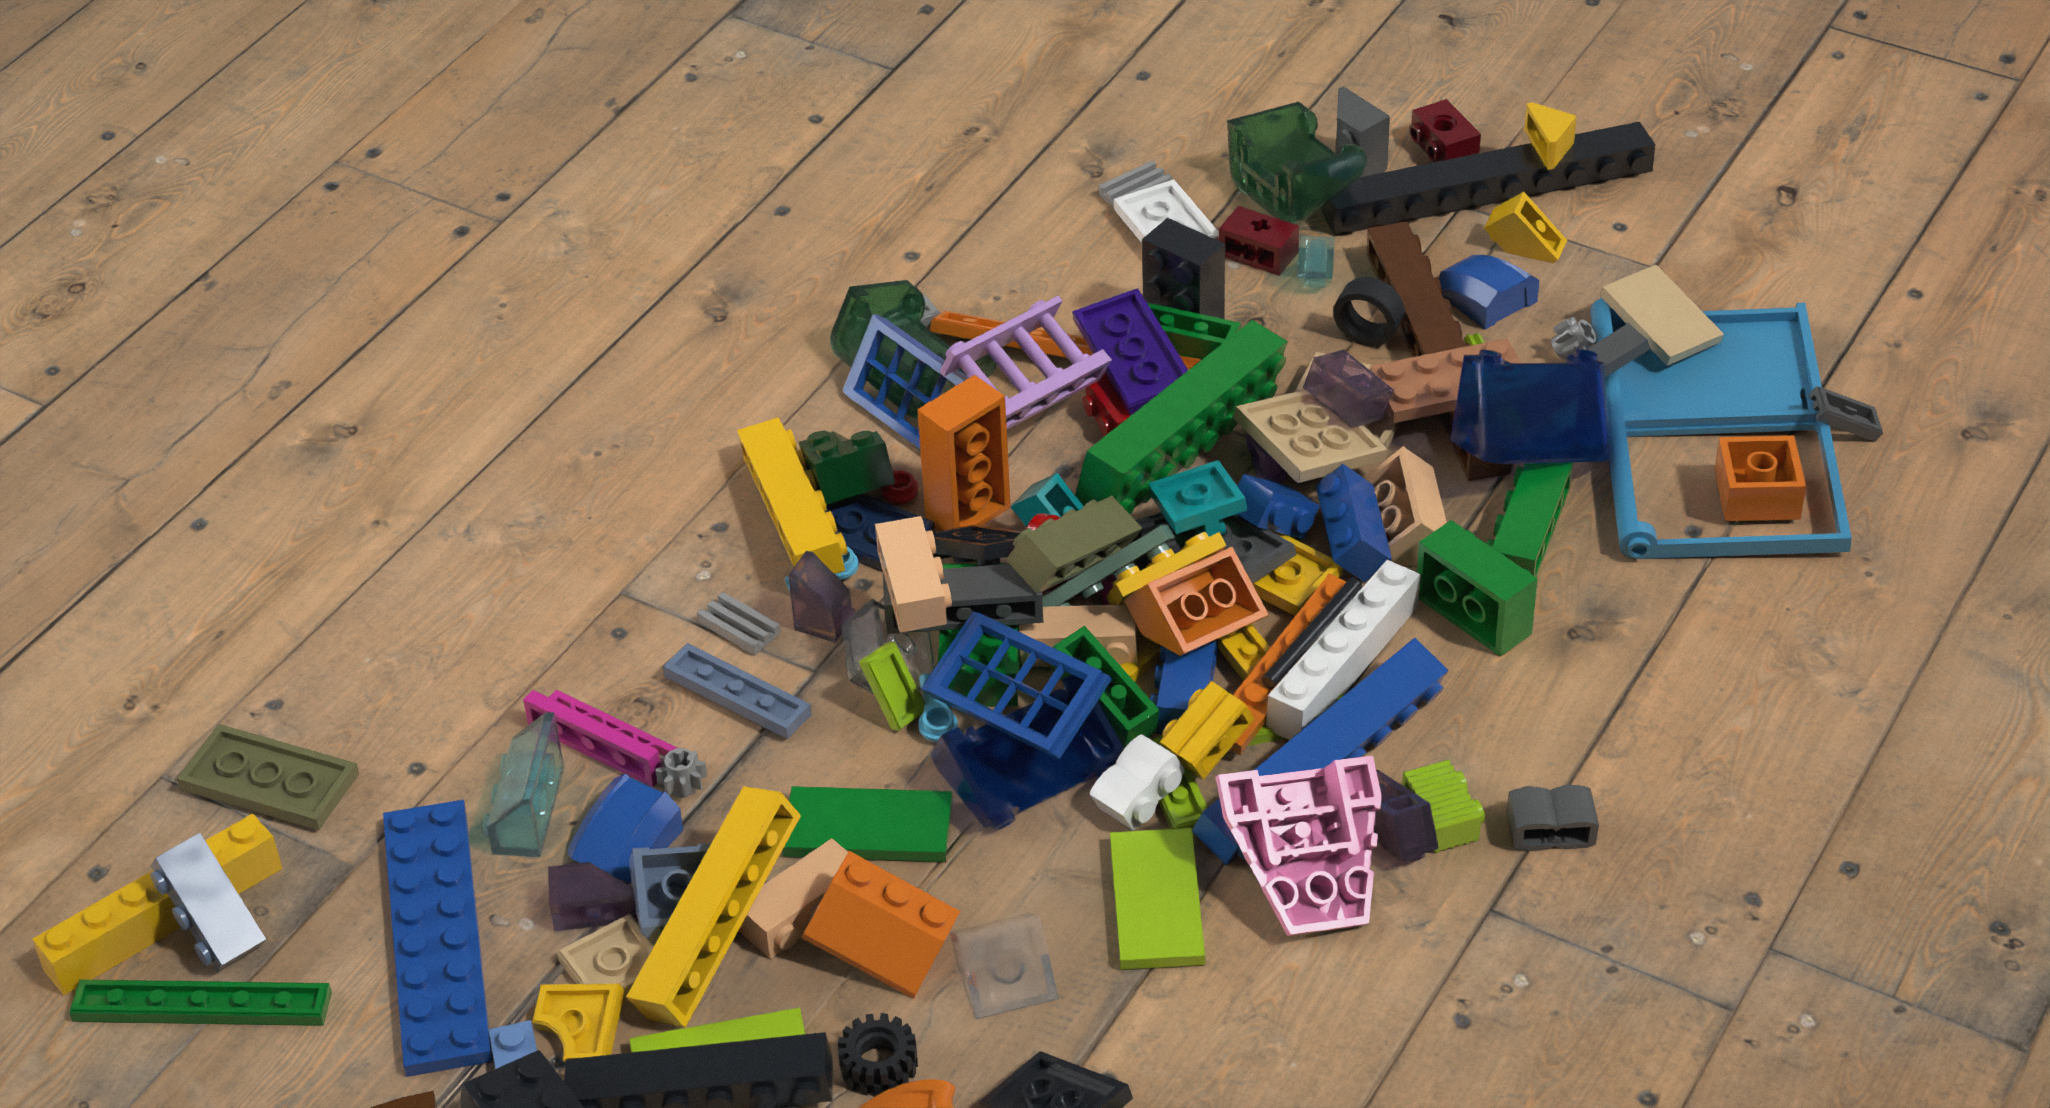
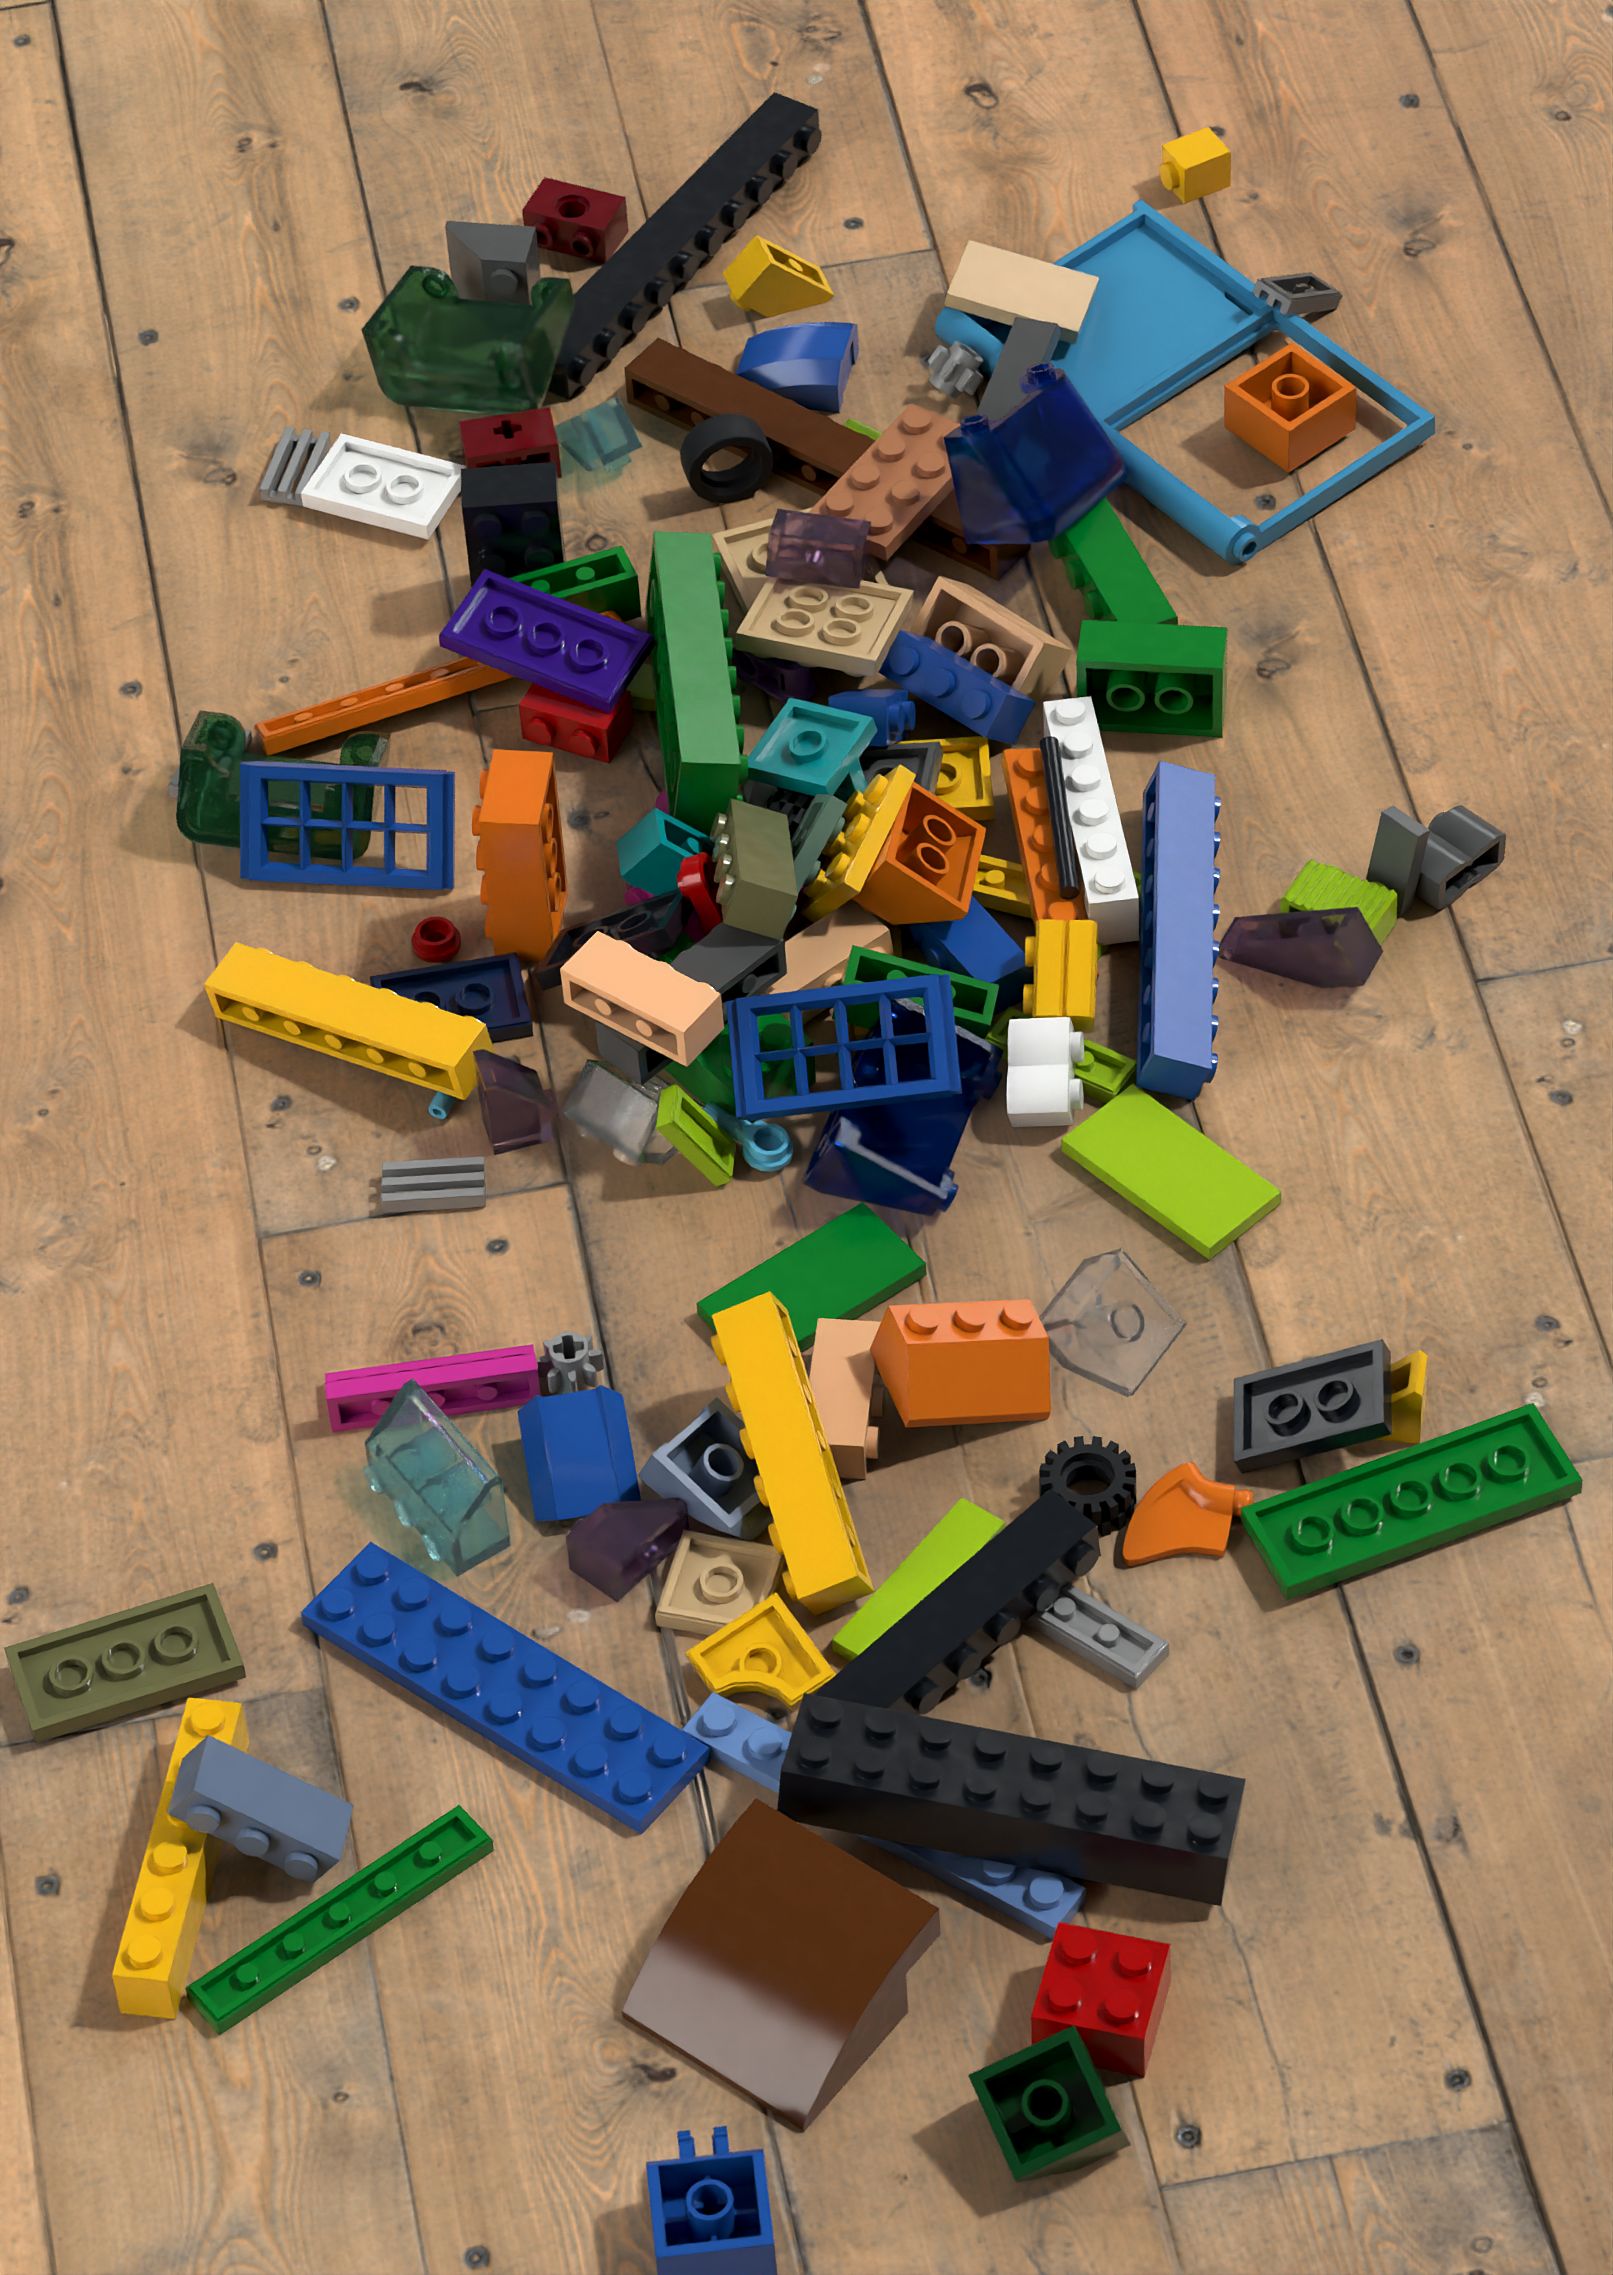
camera: 40 degrees left, 5 degrees up
(737, 690) = (522, 1249): sand blue plate -> none
(847, 465) = (378, 947): dark green slope -> none
(1031, 396) = (516, 717): lavender fence -> none
(1308, 840) = (1279, 1013): bright pink wedge -> none
(1503, 794) = (1398, 855): none -> dark grey tile
(1549, 132) = (707, 155): yellow slope -> none
(1869, 303) = (1195, 165): none -> yellow brick

